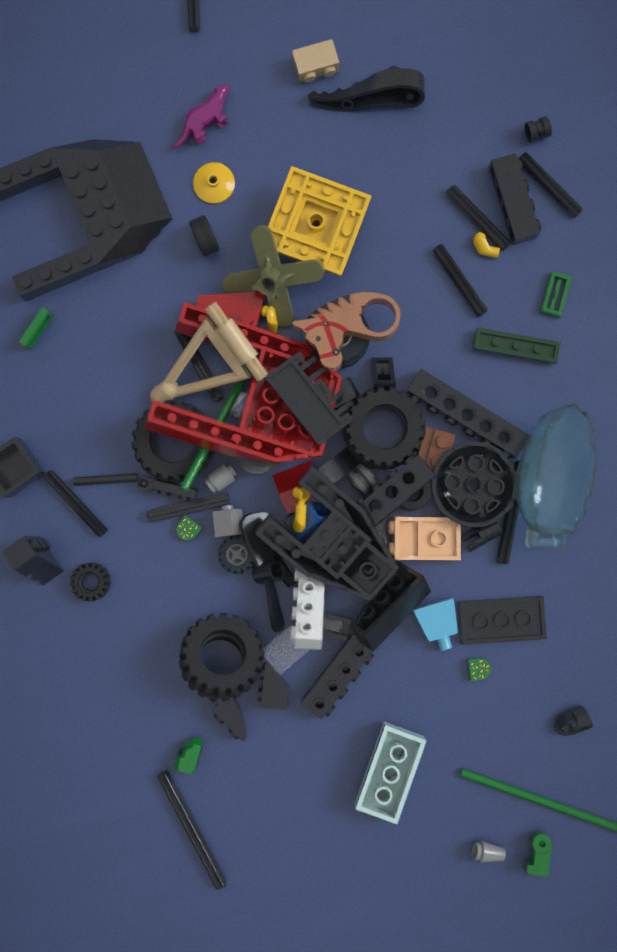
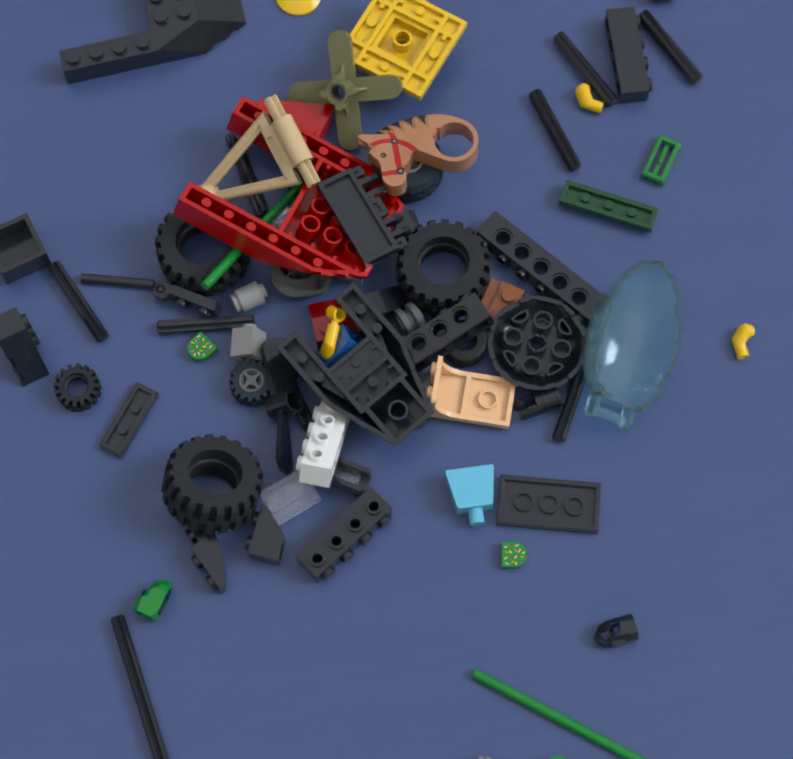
camera: 10 degrees right, 15 degrees down
(36, 328) = (73, 110): green tile -> none
(139, 602) = (129, 420): none -> black tile
(204, 235) = (277, 41): black tyre -> none
(270, 313) = (335, 130): yellow arm -> none
(383, 372) = (452, 209): black slope -> none
(390, 606) = (418, 460): black wedge -> none
(390, 772) = (387, 652): light aqua brick -> none

